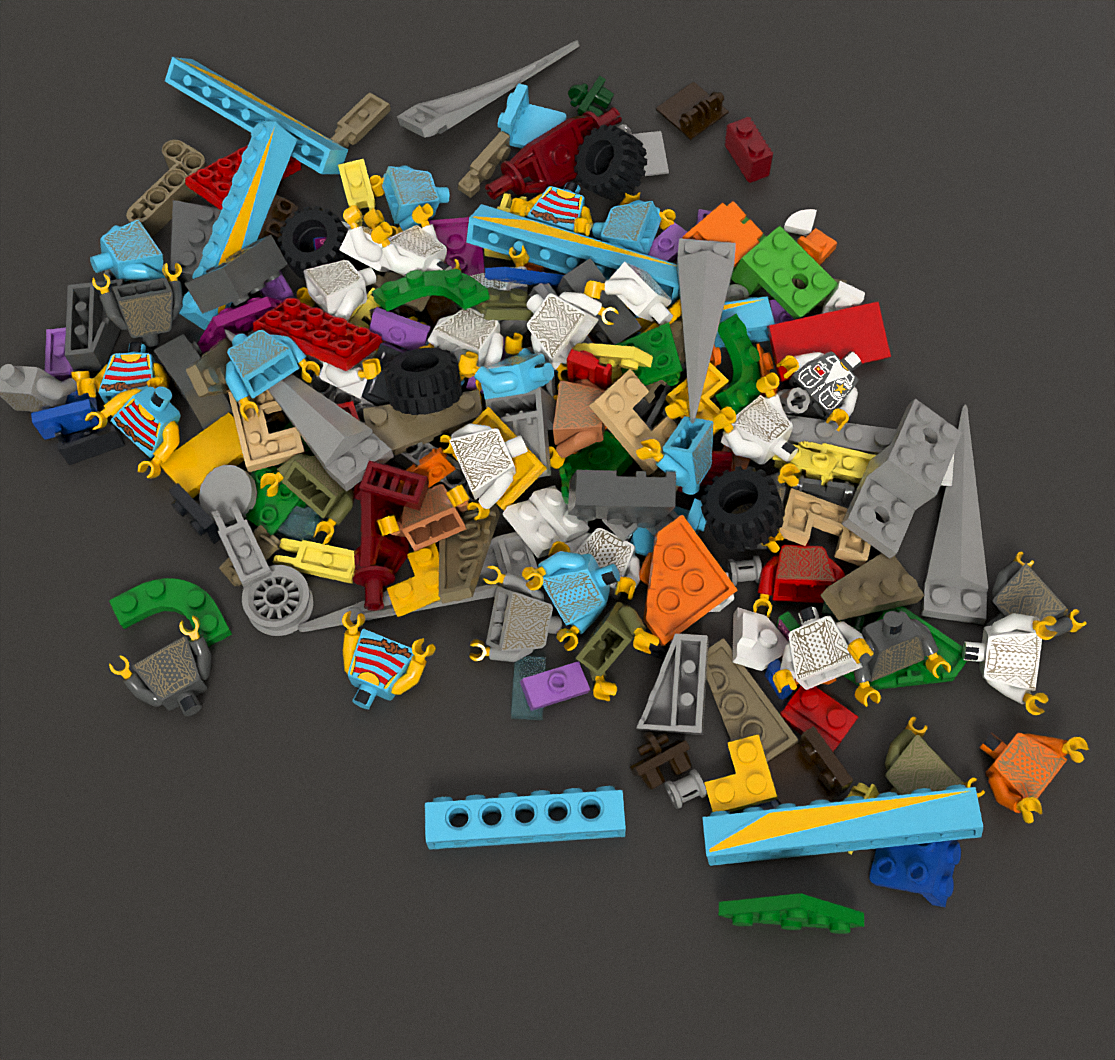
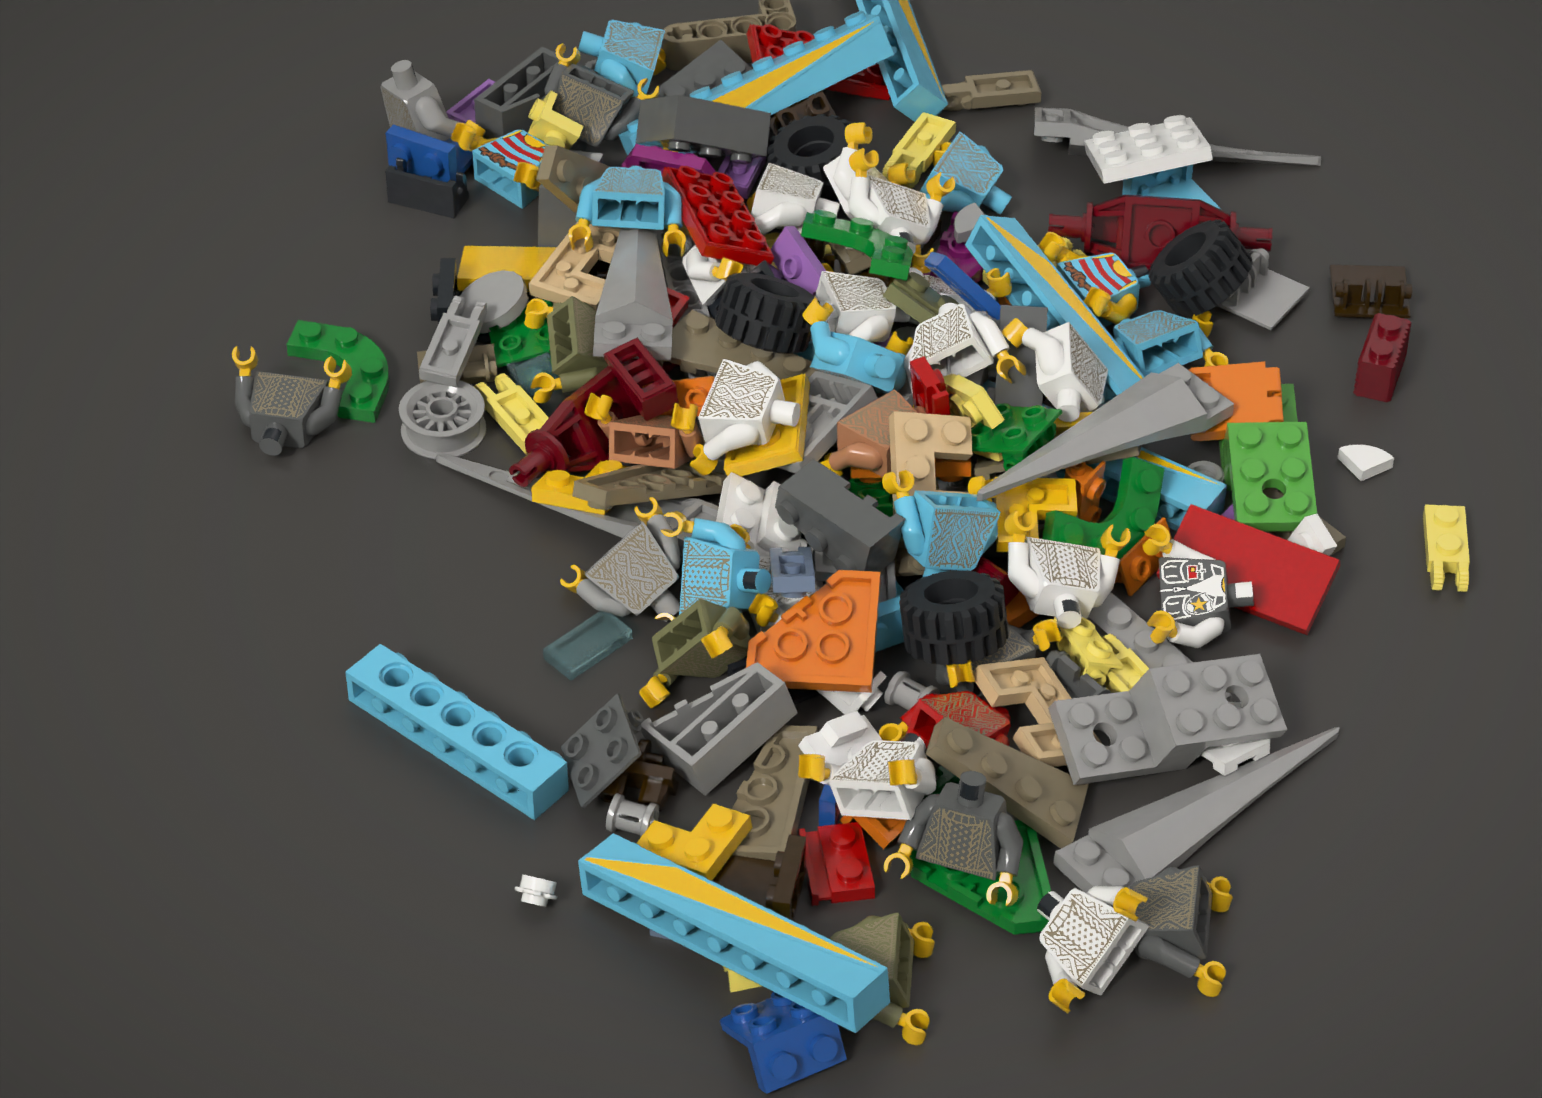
camera: 40 degrees right, 20 degrees down
(134, 340) = (552, 126): none -> light yellow bracket
(147, 421) = (487, 198): torso -> none
(380, 664) = (471, 522): torso -> none
(449, 223) = (965, 222): none -> light grey tile
(485, 164) = (1071, 199): dark tan hinge -> none
(507, 104) = (1147, 149): none -> white plate
(554, 686) = (610, 653): medium lavender plate -> none
(597, 94) = (1263, 209): dark green hips -> none
(624, 551) = (792, 572): none -> sand blue plate
(636, 764) = (602, 749): none -> dark grey hinge
(687, 889) = (536, 890): none -> white plate
(792, 913) = (601, 956): green plate -> none
(797, 405) = (1129, 594): light grey bush -> none
(817, 245) = (1348, 491): orange bracket -> none
(896, 247) = (1446, 545): none -> light yellow hinge
(1026, 768) = (989, 1044): orange torso -> none

